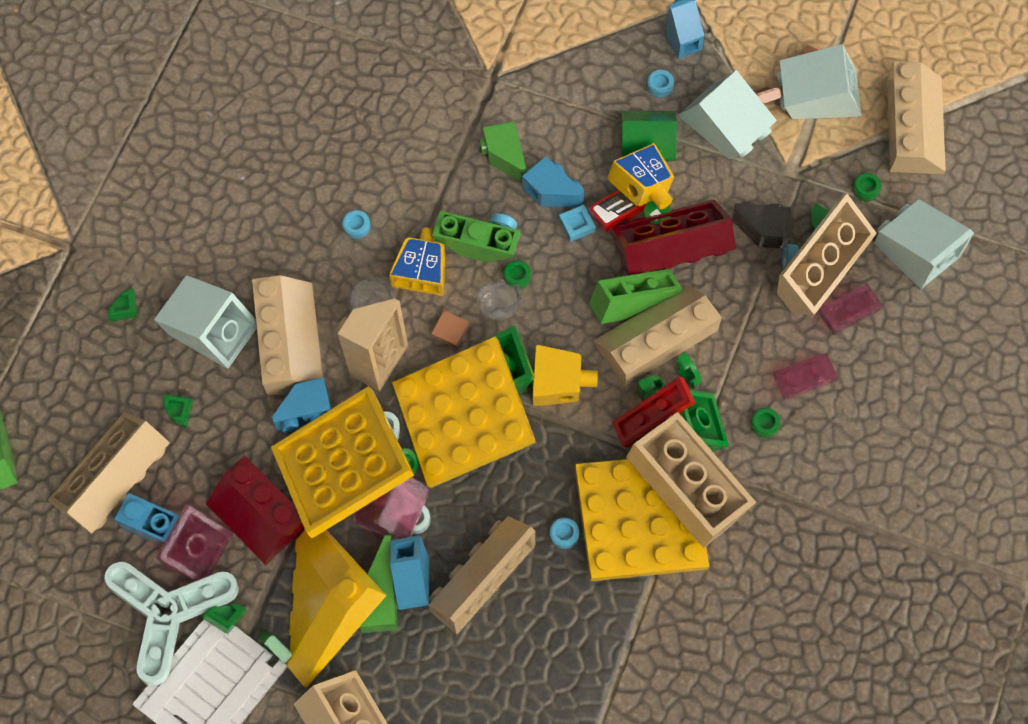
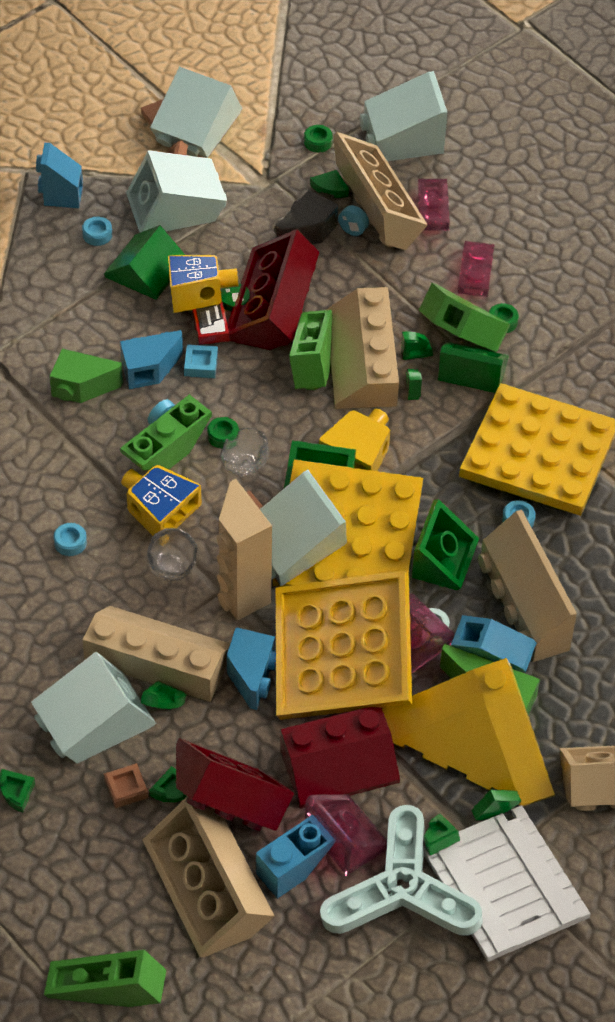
camera: 65 degrees left, 15 degrees down
(163, 376) = (126, 785): none -> nougat tile
(175, 444) = (230, 787): none -> dark red slope
(246, 360) = (163, 696): none -> green tile
(425, 372) = (303, 527): none -> light aqua slope
(492, 490) = (443, 549): none -> green slope
(653, 411) = (448, 382): red tile -> none
(690, 479) = (537, 380): tan slope -> none
(735, 391) = (463, 318): none -> bright green slope
(915, 119) = (275, 74): tan slope -> none

